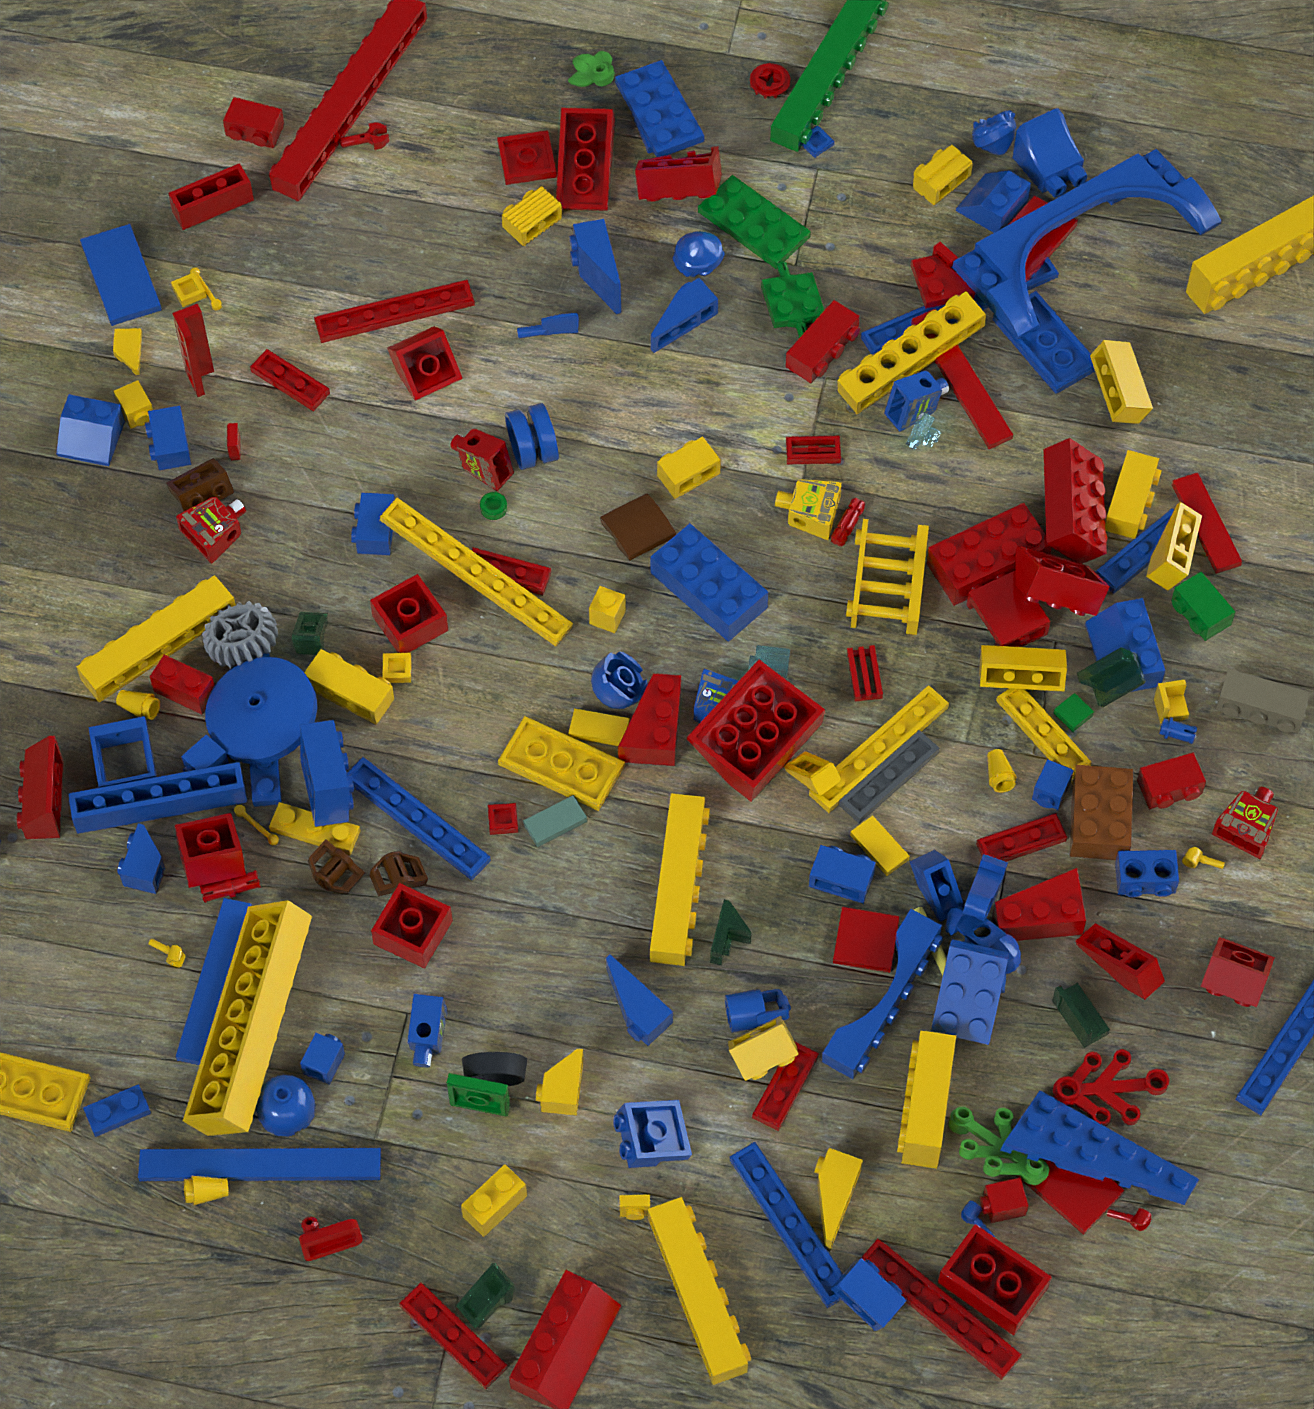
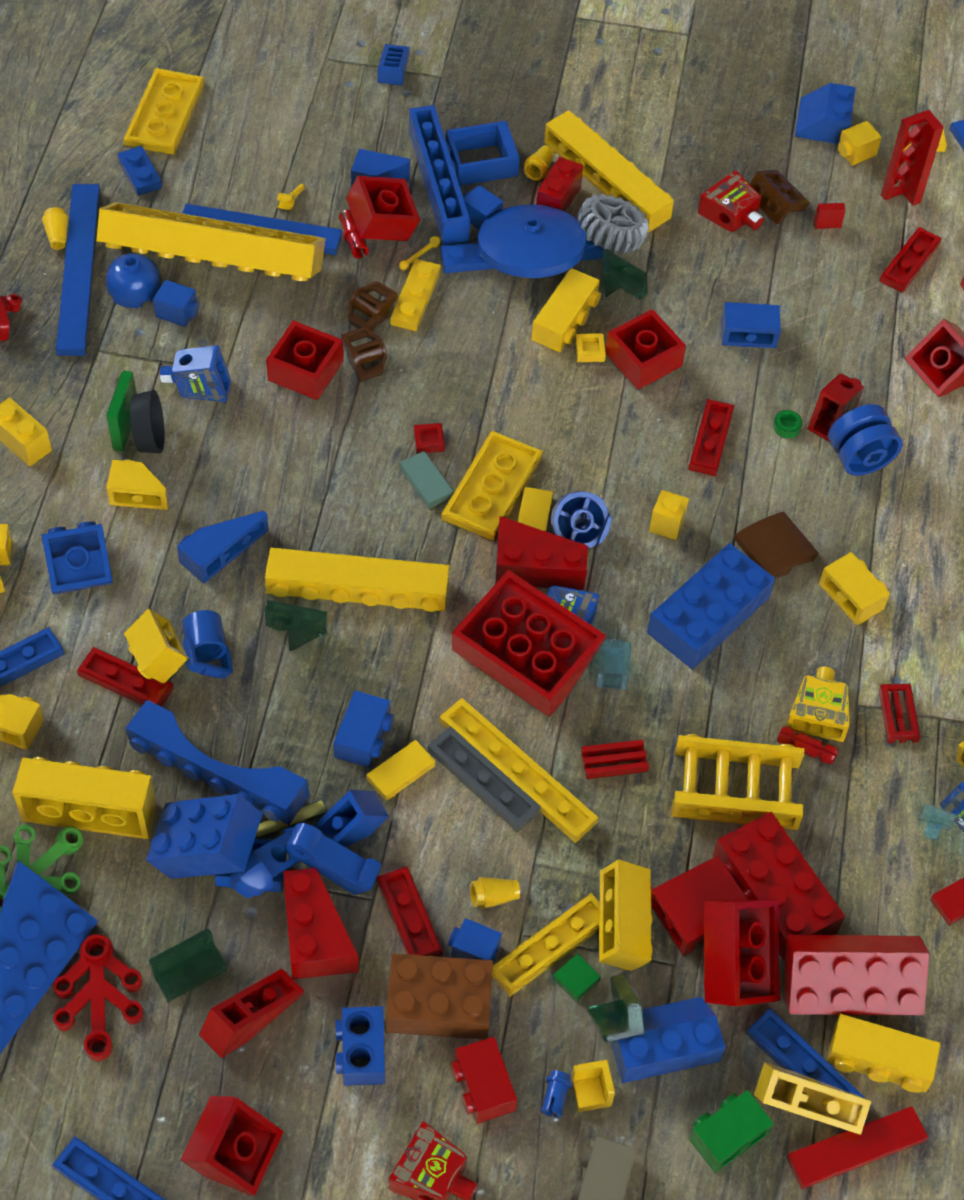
camera: 85 degrees right, 5 degrees down
(41, 790) = (452, 99): red slope -> none
(169, 438) = (826, 169): blue brick -> none
(325, 773) = (460, 281): blue brick -> none
(418, 819) = (427, 372): blue tile -> none
(476, 572) = (700, 404): yellow tile -> none
(813, 772) = (481, 699): yellow slope -> none
(866, 939) = (291, 748): red tile -> none
(1195, 855) = (387, 1104): yellow hand -> none

